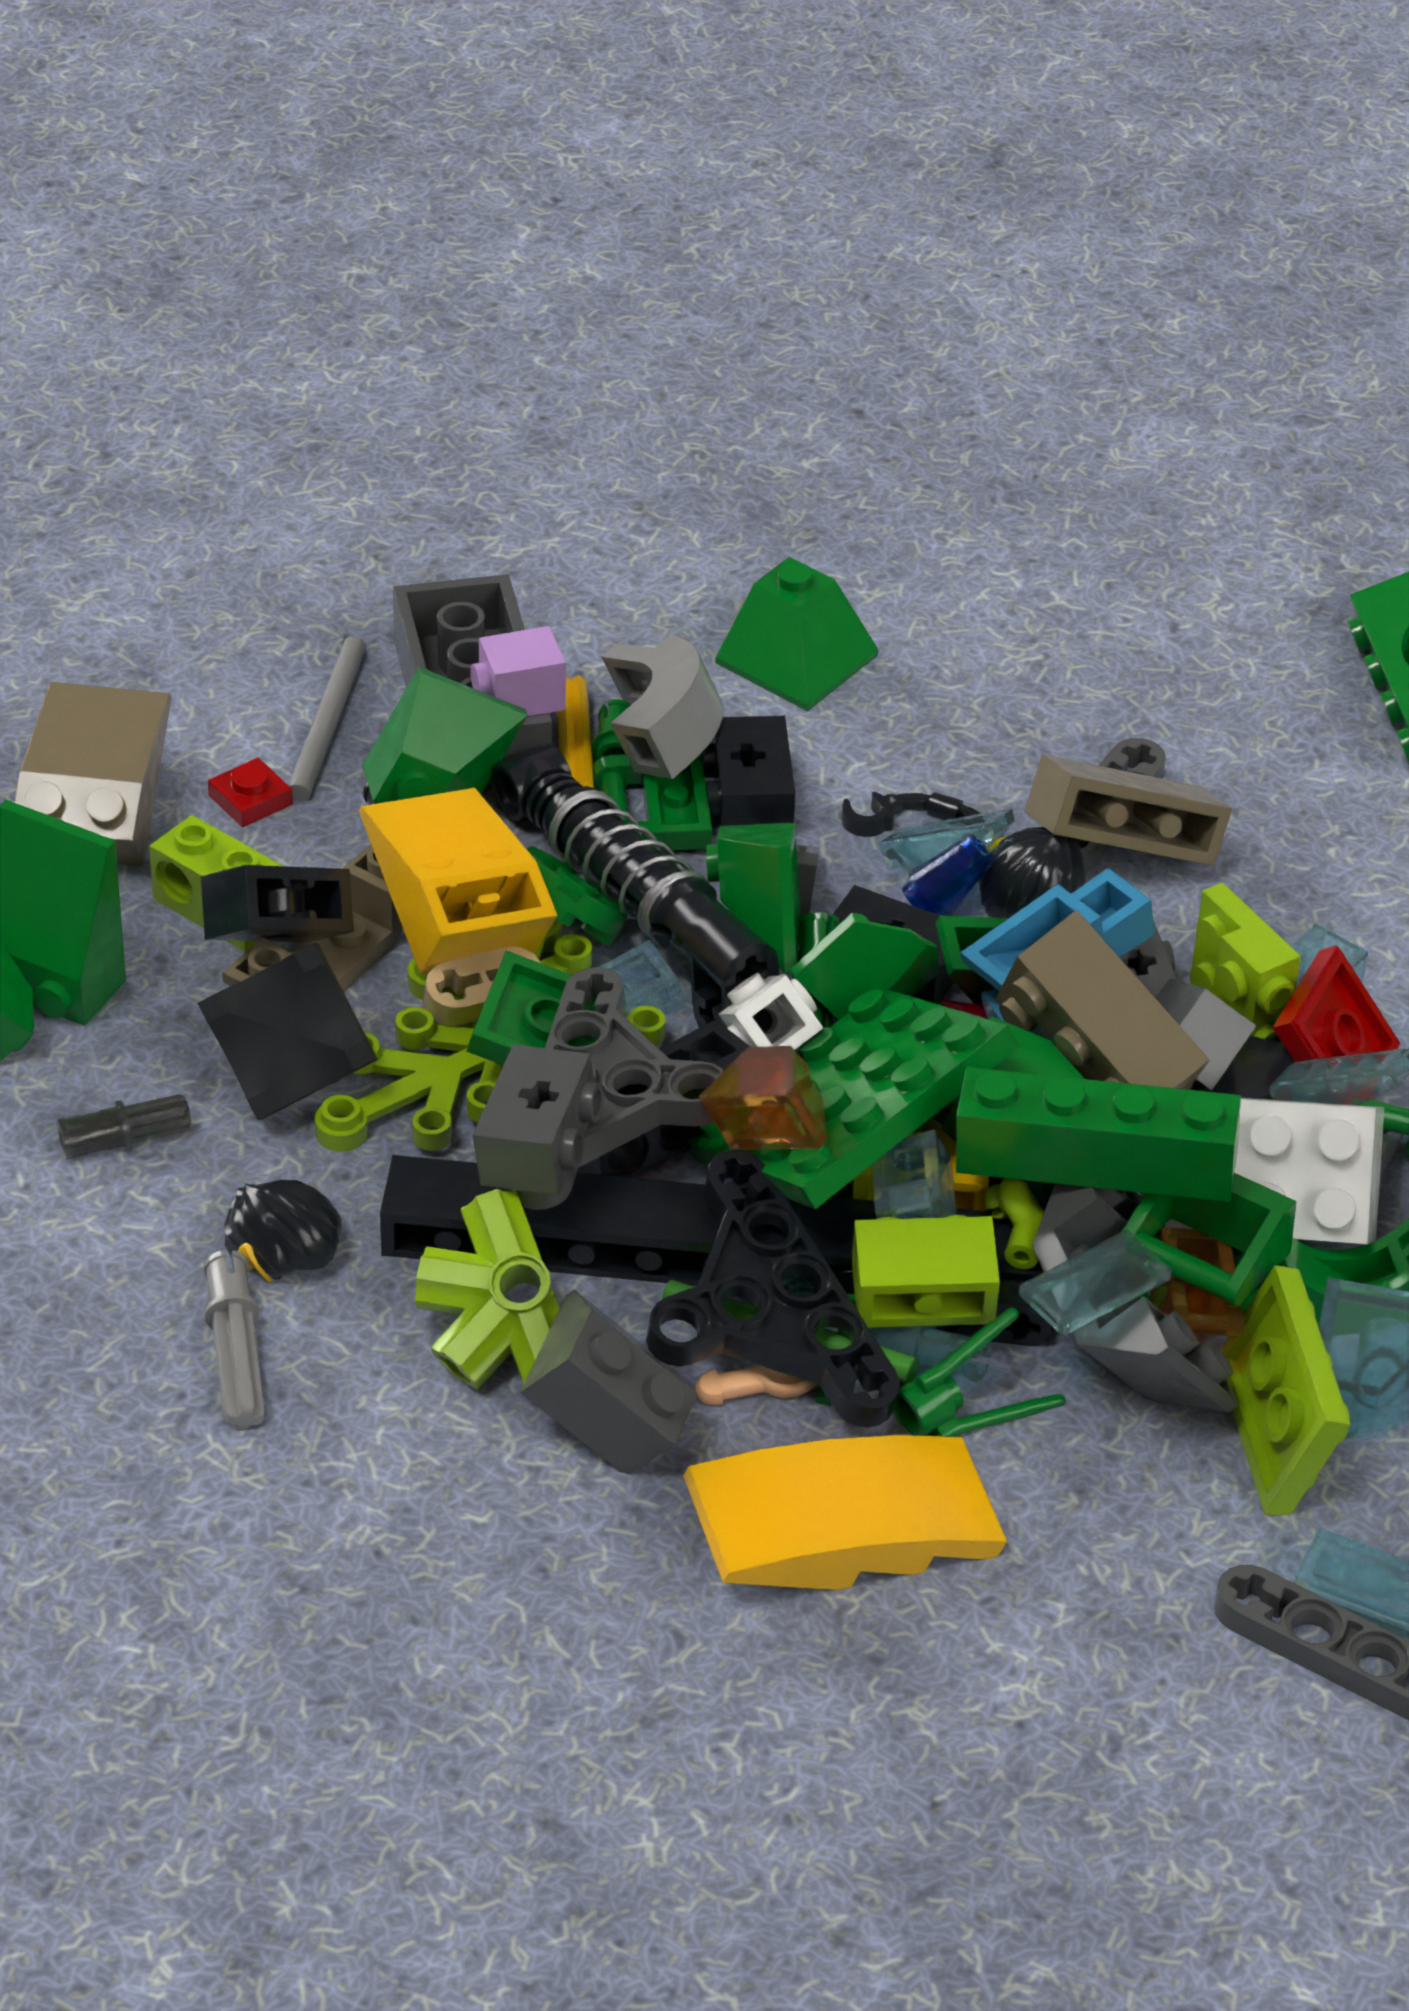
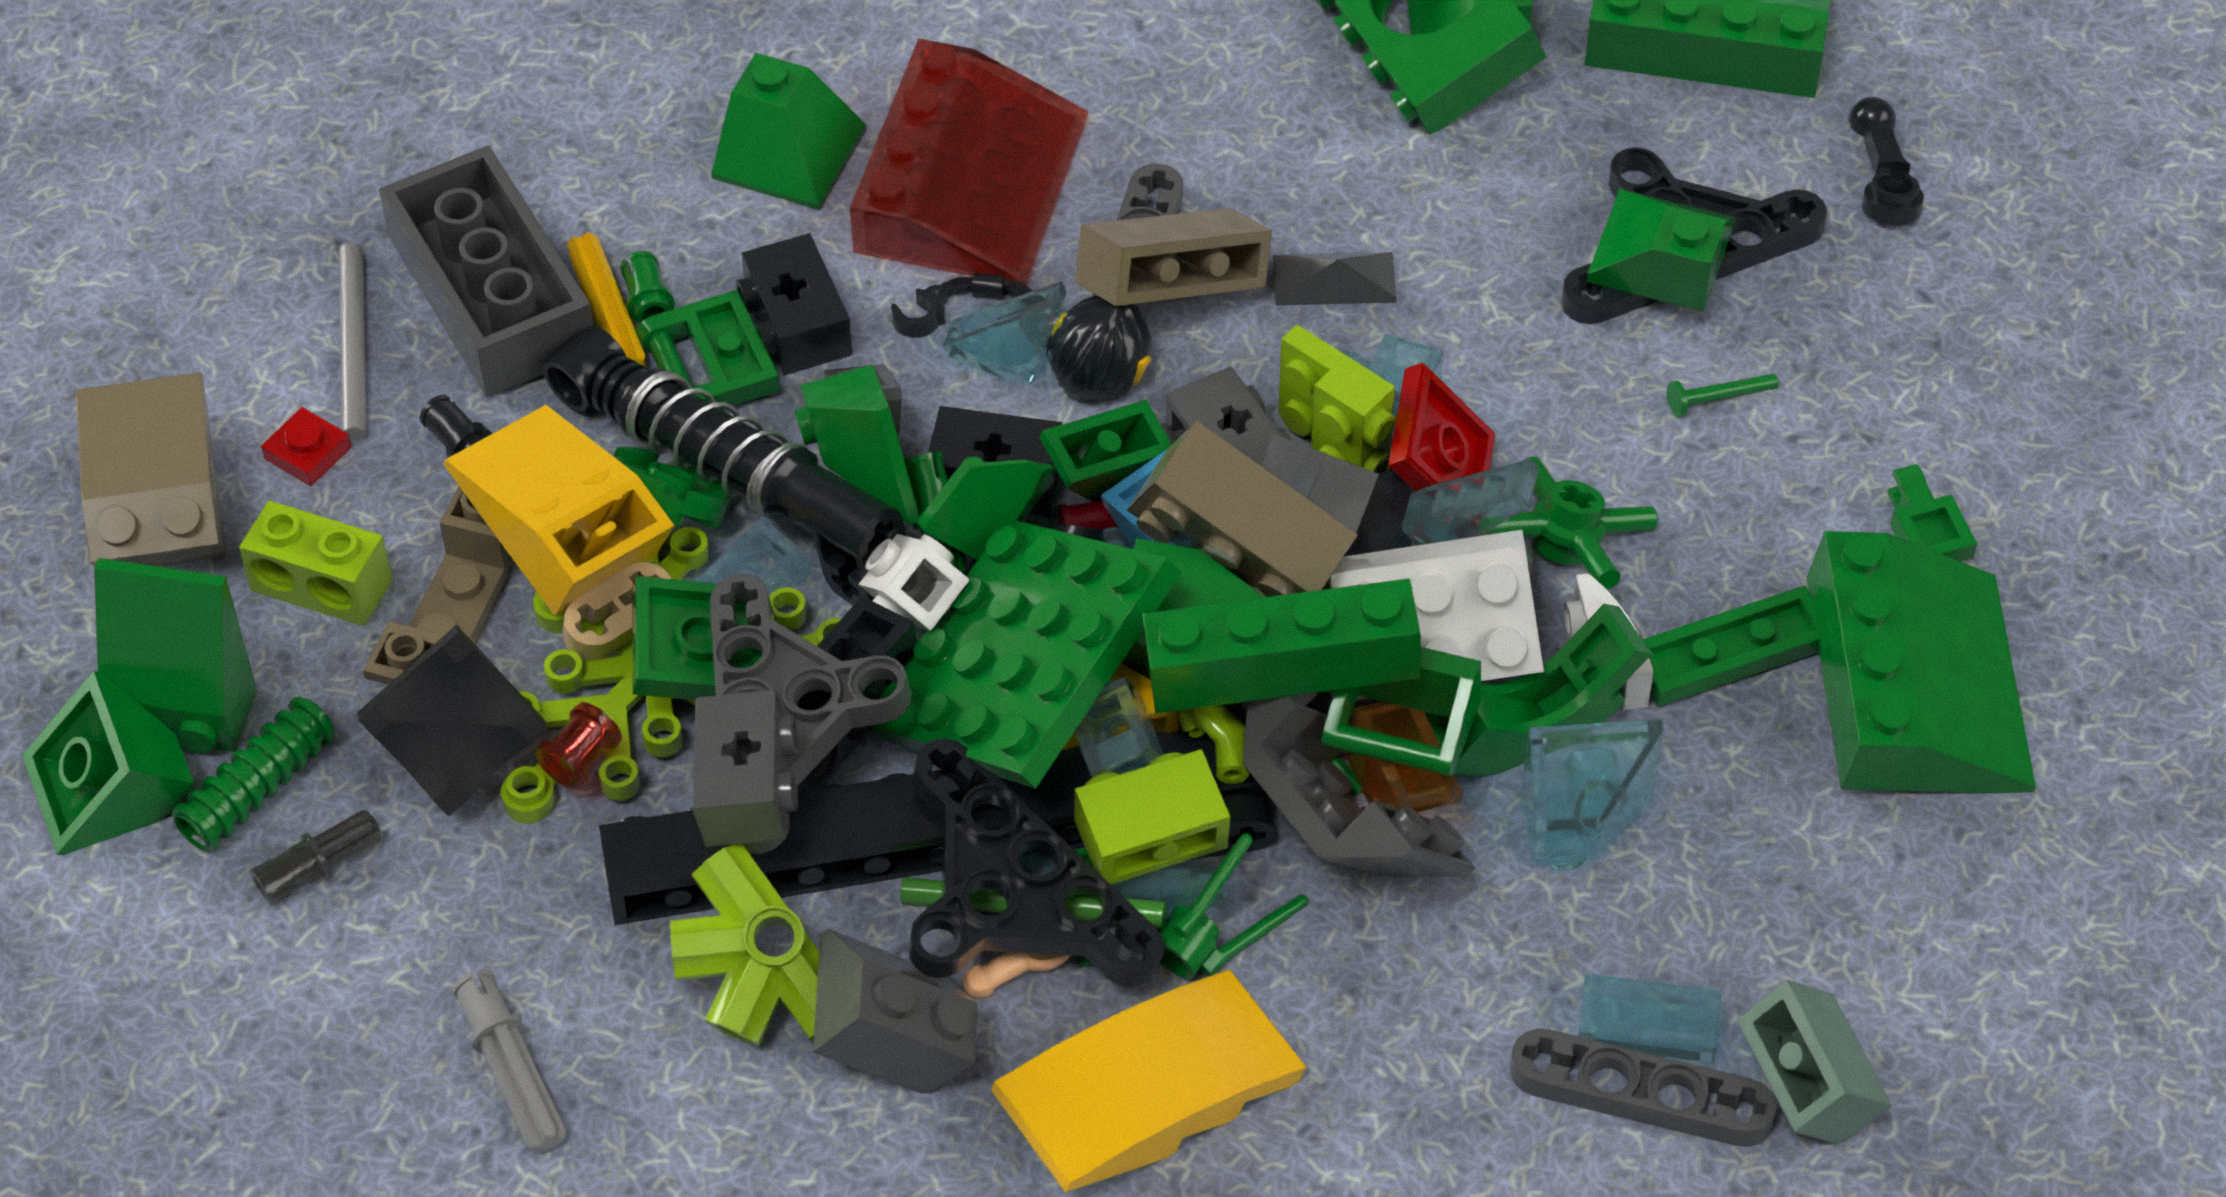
camera: 15 degrees left, 10 degrees up
(93, 1042) = (254, 773): none -> green piece
(277, 903) = (393, 584): black brick -> none
(282, 1227) = (513, 928): black hair -> none
(400, 1086) = (578, 745): none -> clear red bush
(440, 740) = (488, 362): green slope -> none
(522, 670) = (546, 264): lavender brick -> none
(671, 706) = (709, 253): light grey arch -> none
(767, 1102) = (955, 687): clear orange slope -> none
(948, 877) = (1022, 371): clear blue cone -> none
(957, 699) = (965, 166): none -> clear red slope
(1094, 1282) = (1317, 791): clear light blue slope -> none
(1107, 902) = (1191, 389): dark azure slope -> none
(1285, 1392) = (1519, 847): lime plate -> none
(1288, 876) = (1334, 278): none -> dark grey slope

